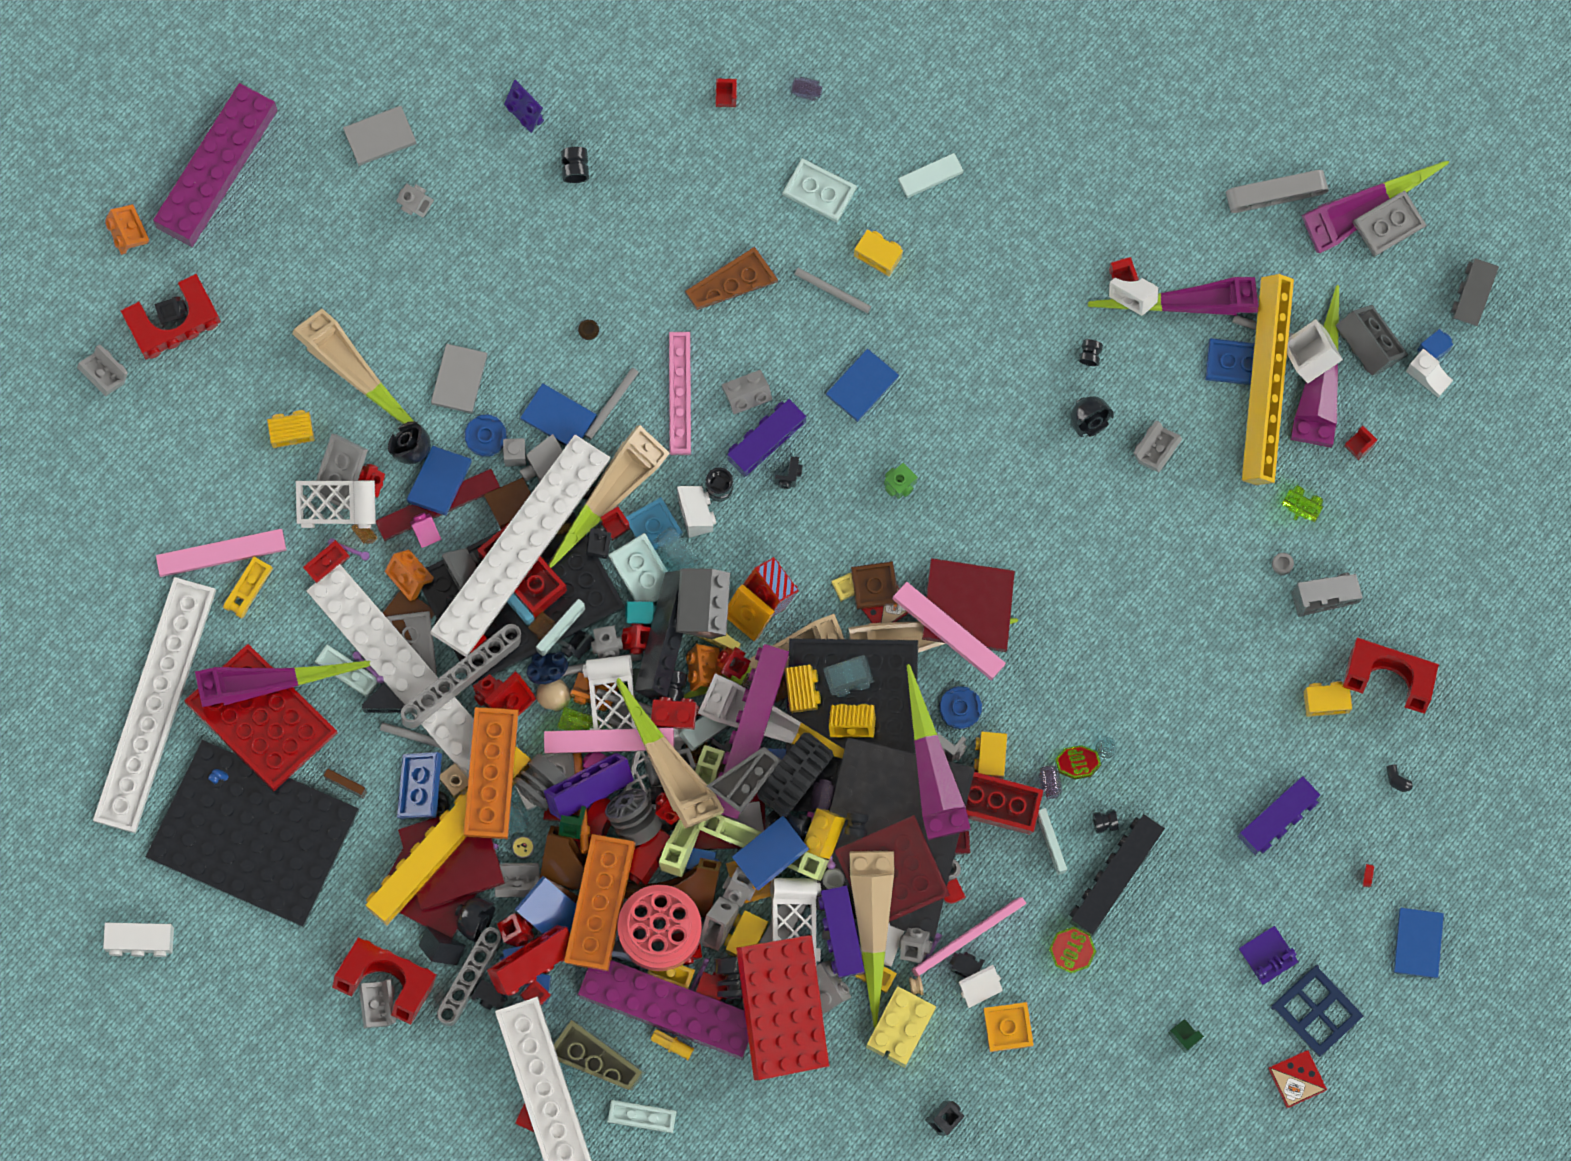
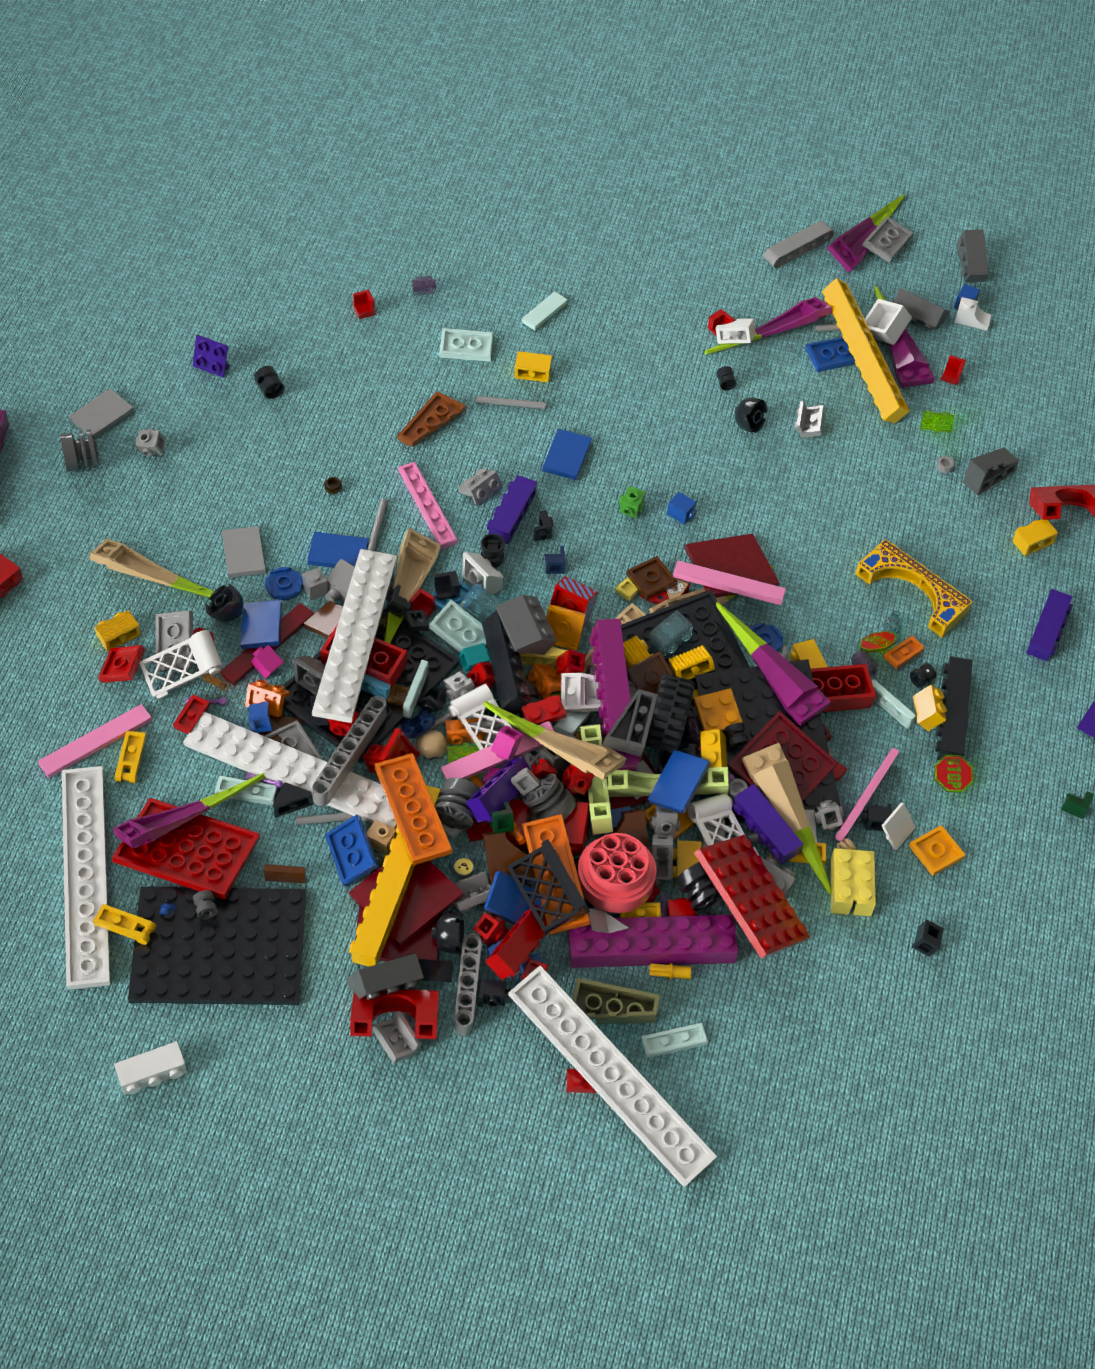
camera: 25 degrees left, 20 degrees down
(168, 778) = (124, 923): none -> yellow plate
(252, 790) = (205, 905): none -> dark grey wheel
(279, 473) = (121, 664): none -> red tile
(329, 184) = (79, 450): none -> dark grey wheel
(389, 595) = (259, 717): none -> blue panel
(389, 942) = (386, 977): none -> dark grey slope
(585, 516) = (397, 604): none -> black panel
(600, 920) = (564, 880): none -> black fence
(615, 739) = (506, 742): none -> dark pink brick
(615, 789) = (525, 781): none -> light grey tile
(623, 973) = (604, 922): none -> light grey sticker
(640, 780) = (543, 769): none -> red tile
(649, 513) = (447, 585): none -> black panel
(782, 522) = (555, 562): none -> dark blue panel
(803, 716) = (648, 672): none -> reddish brown tile
(850, 789) = (717, 710): none -> light orange plate
(952, 508) = (682, 508): none -> blue brick
(1087, 865) = (930, 707): none -> yellow brick
(1101, 785) = (904, 652): none -> orange plate
(1147, 668) = (891, 562): none -> yellow arch

